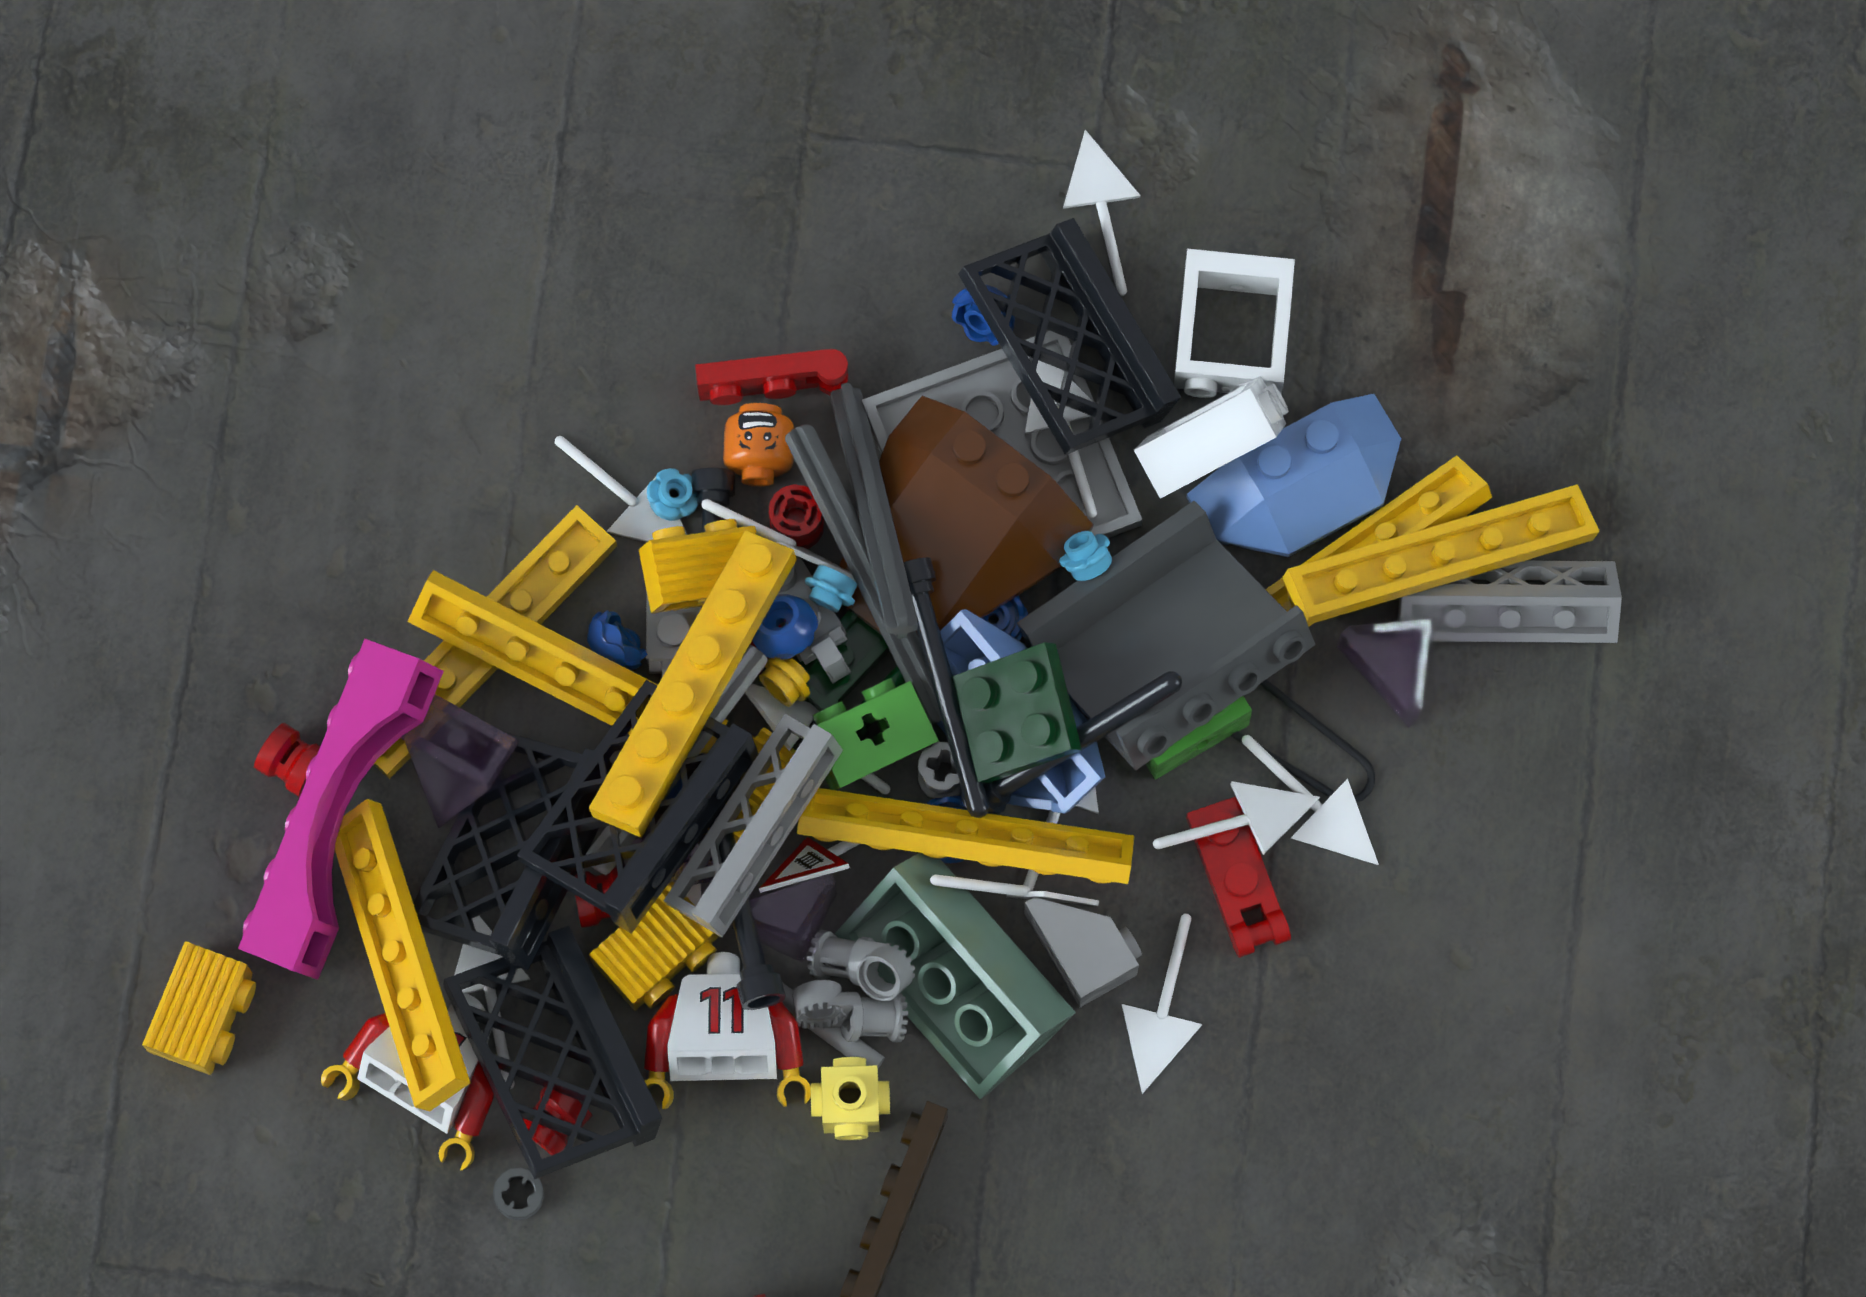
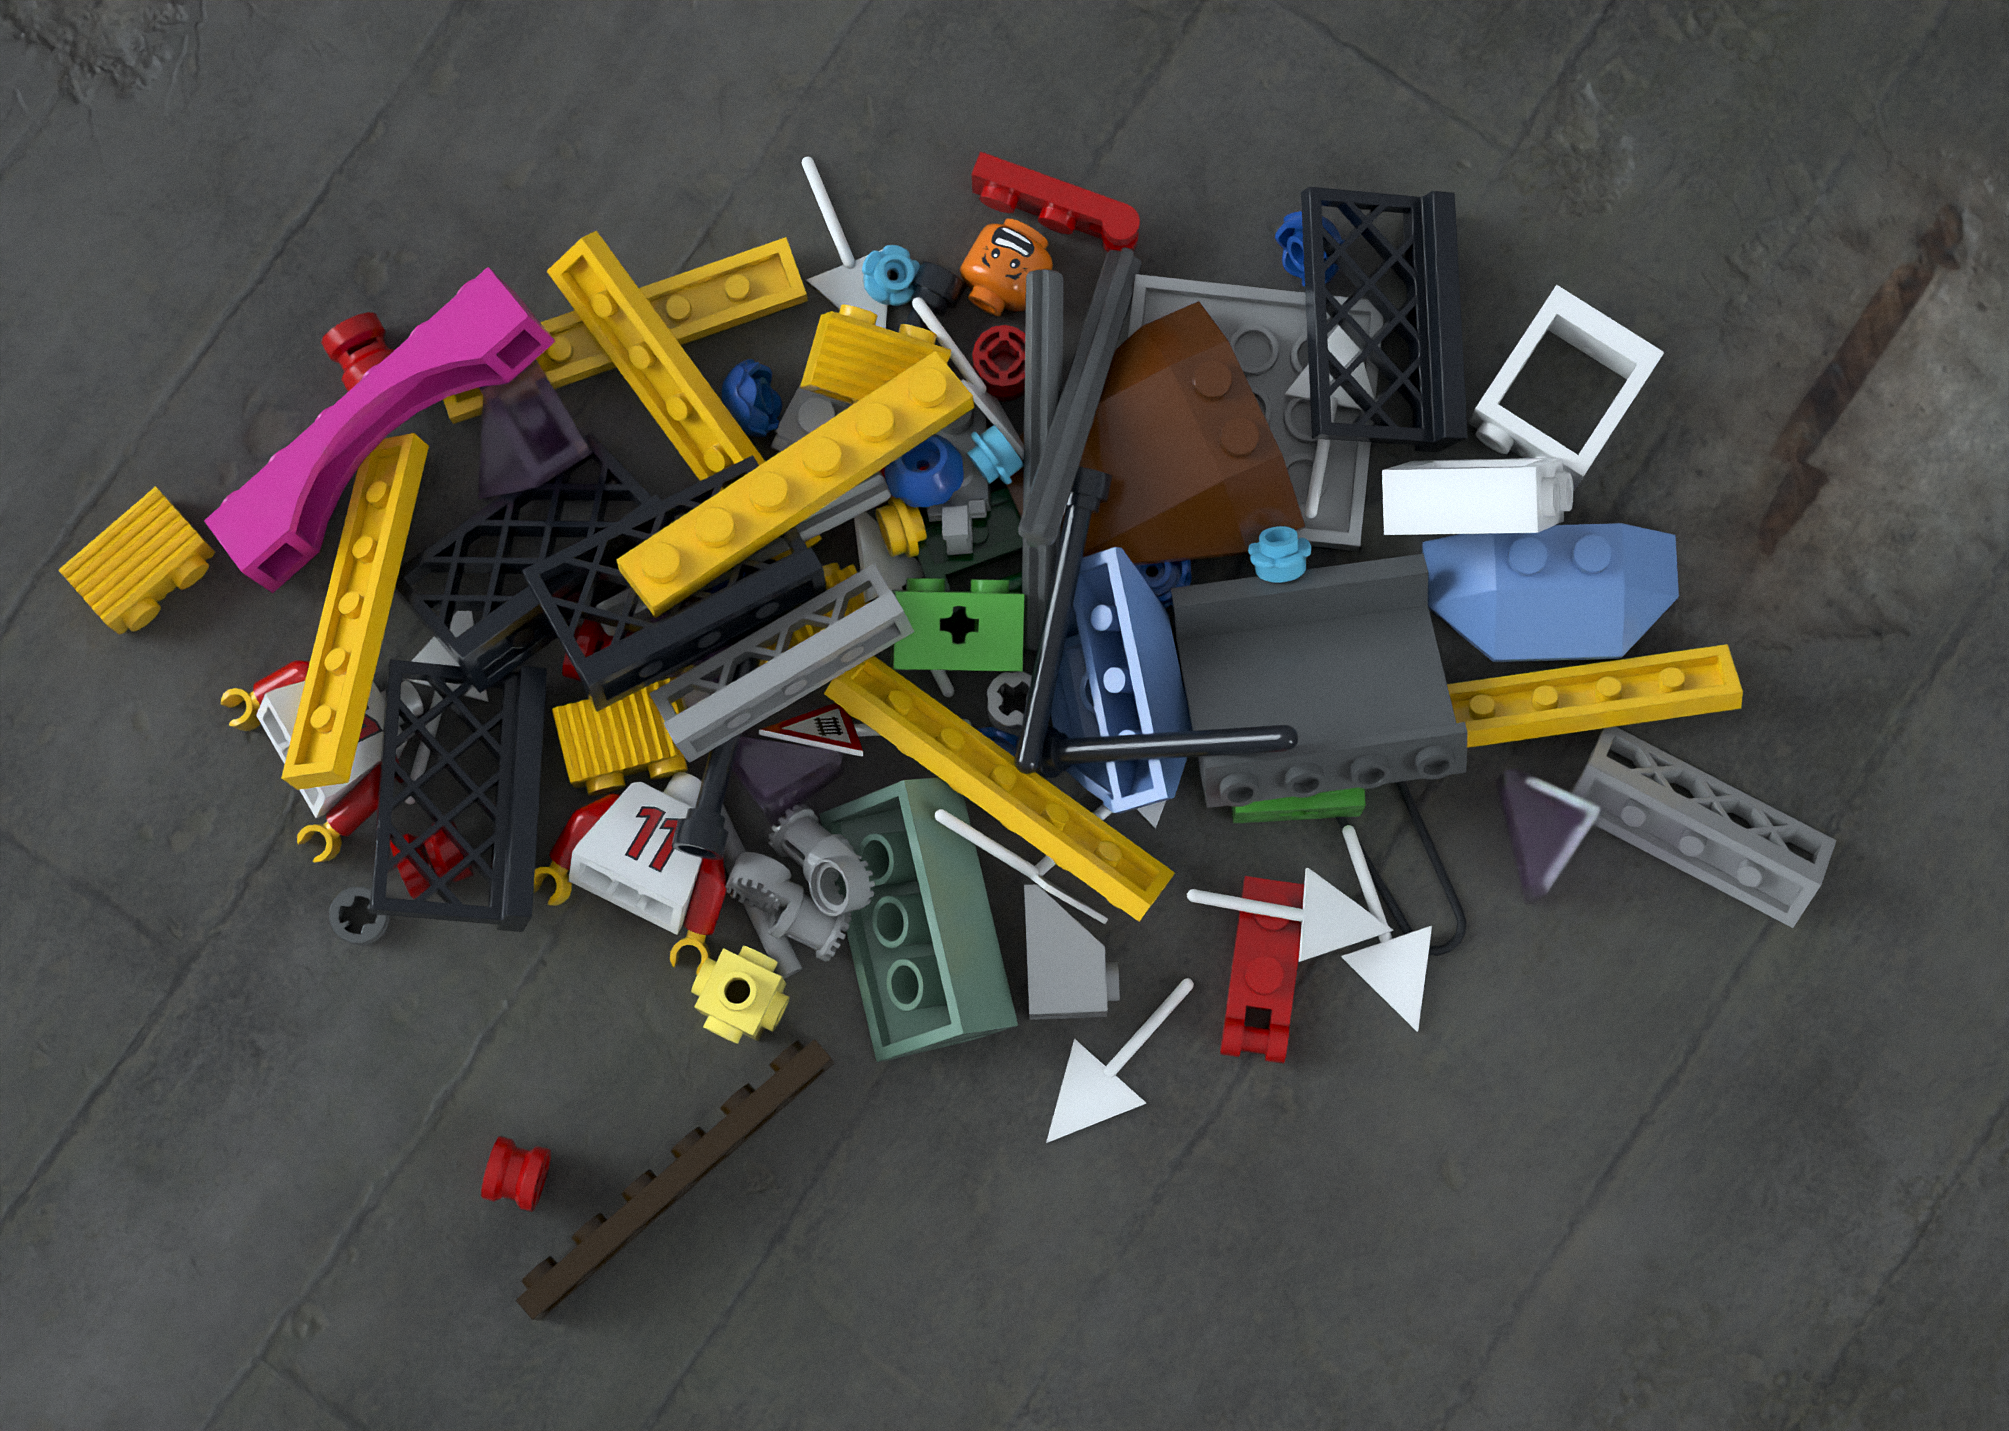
camera: 30 degrees right, 5 degrees up
(1017, 712) = (1115, 684): dark green plate -> none
(1098, 182) = (1502, 168): white piece -> none
(1440, 554) = (1651, 742): yellow plate -> none

